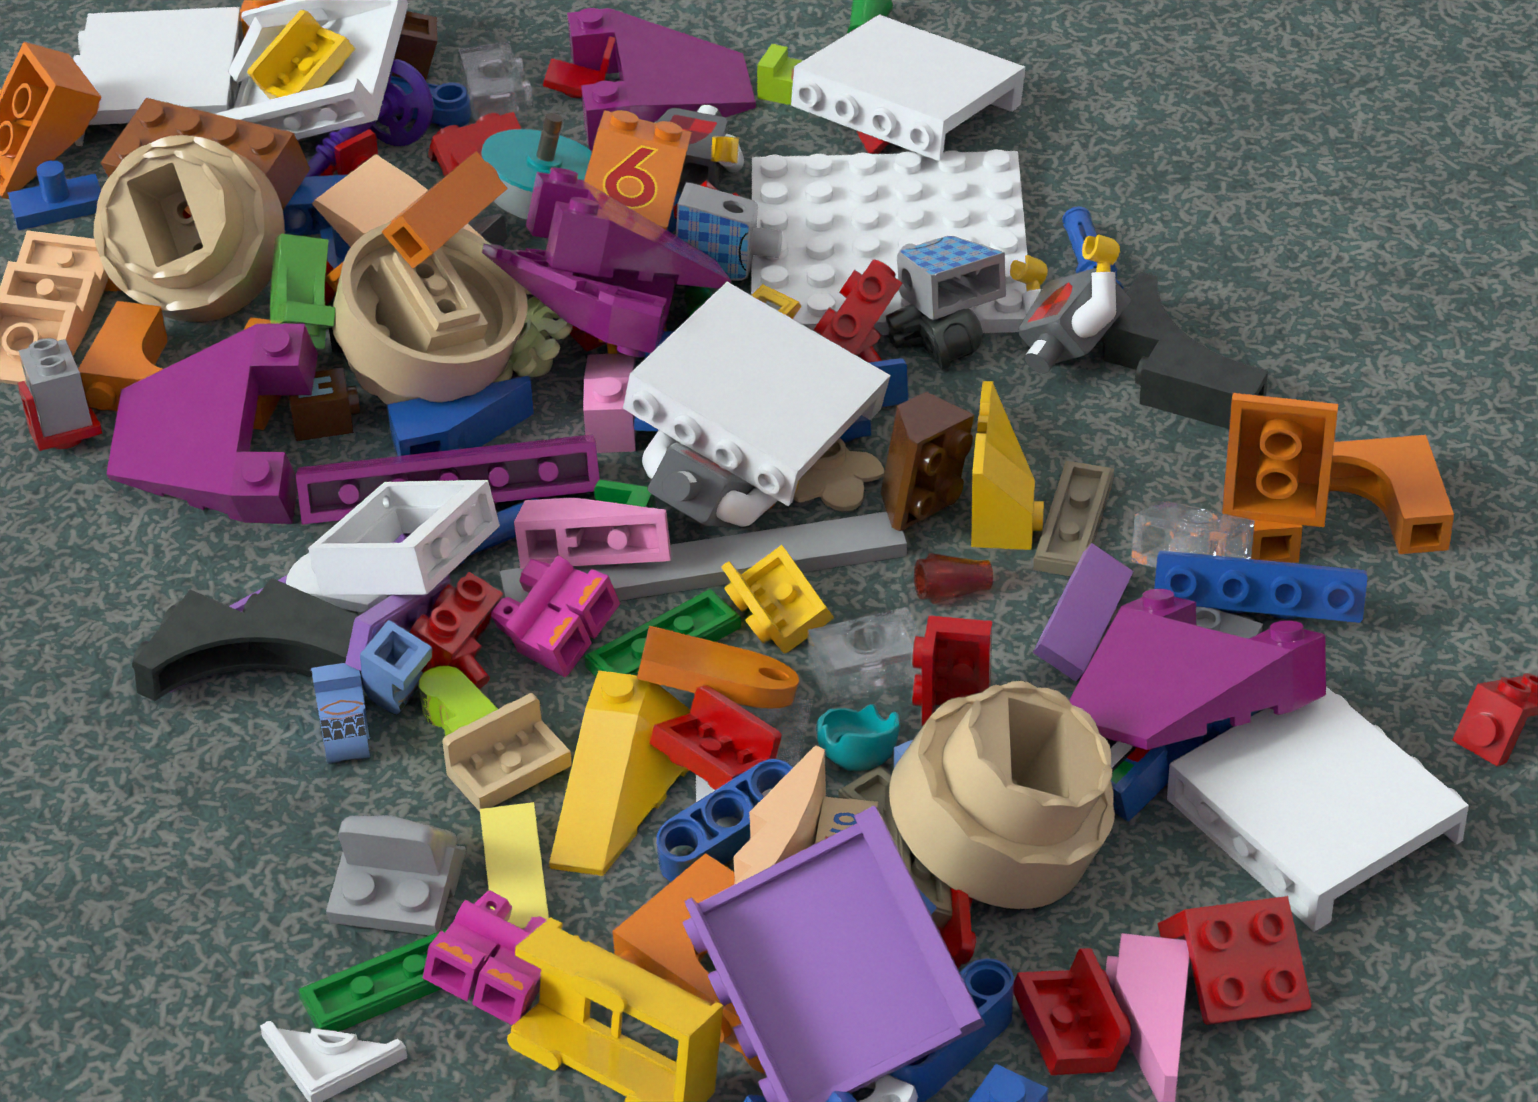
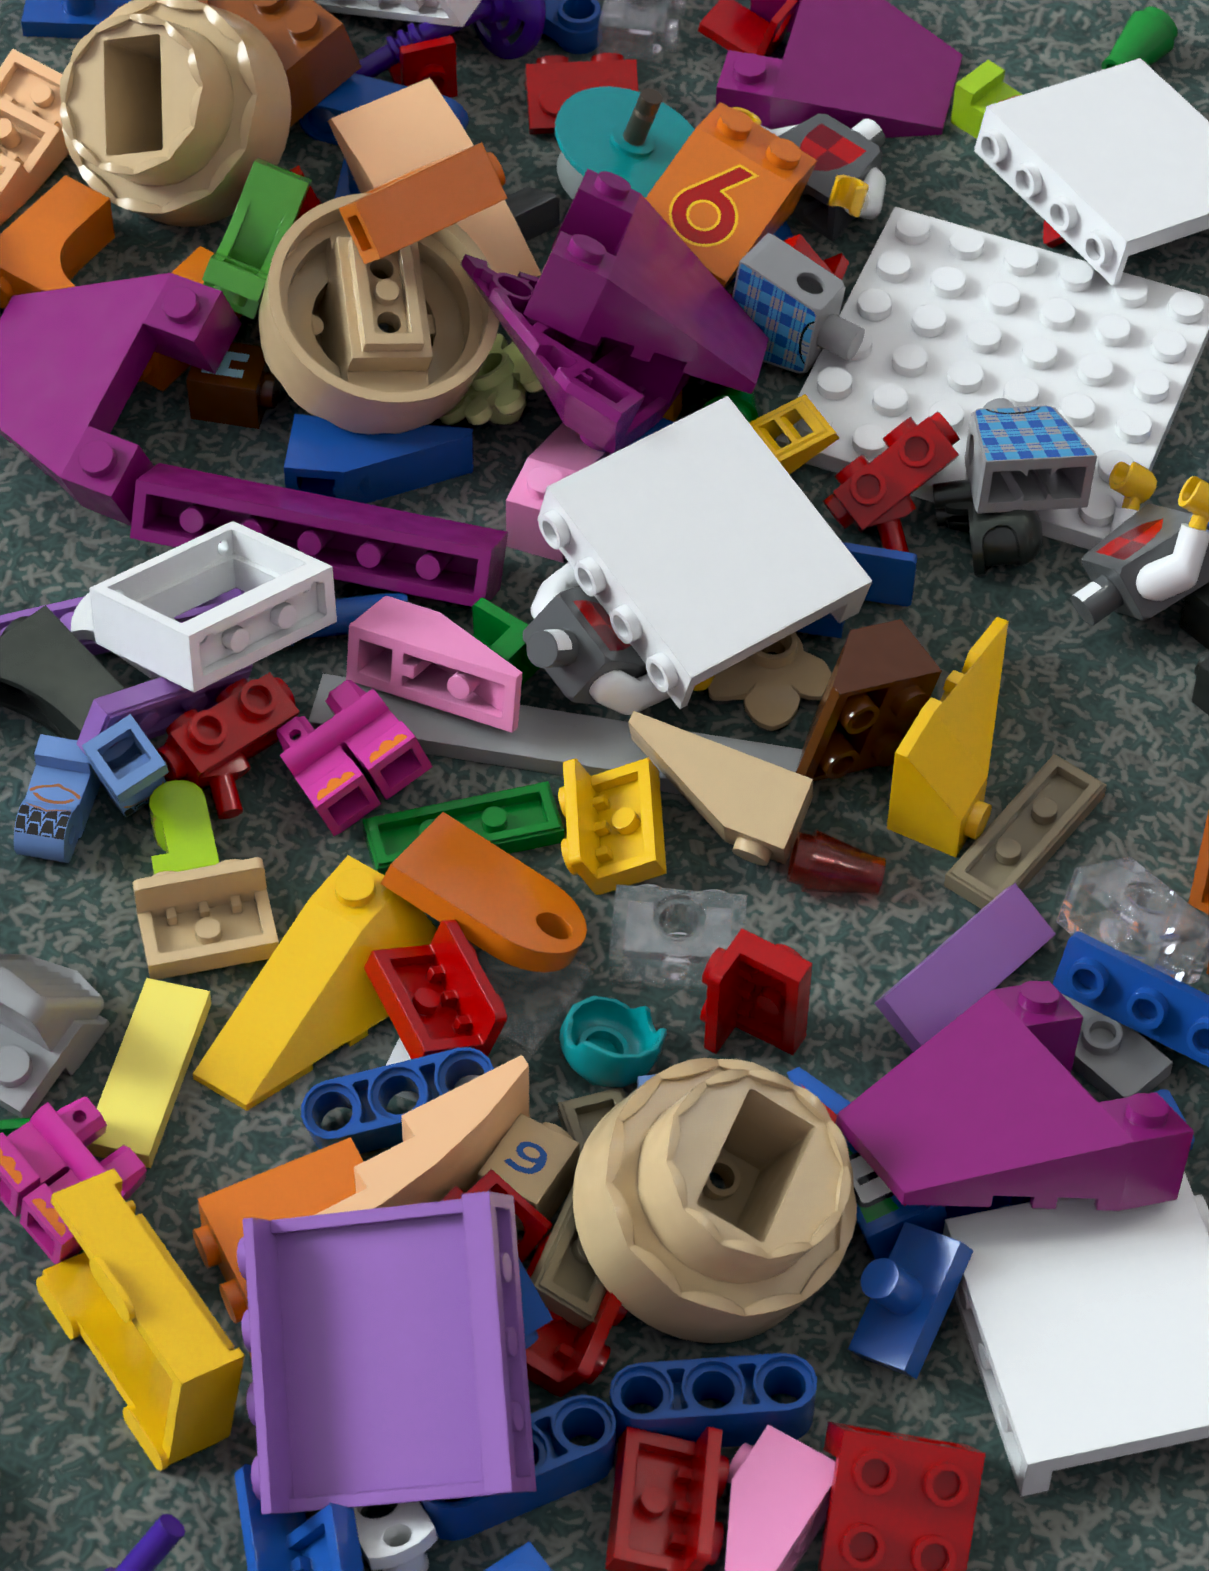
camera: 20 degrees right, 10 degrees up
(855, 548) = (739, 795): none -> tan slope
(1056, 934) = (739, 1381): none -> blue beam
(1171, 825) = (908, 1298): none -> blue tile

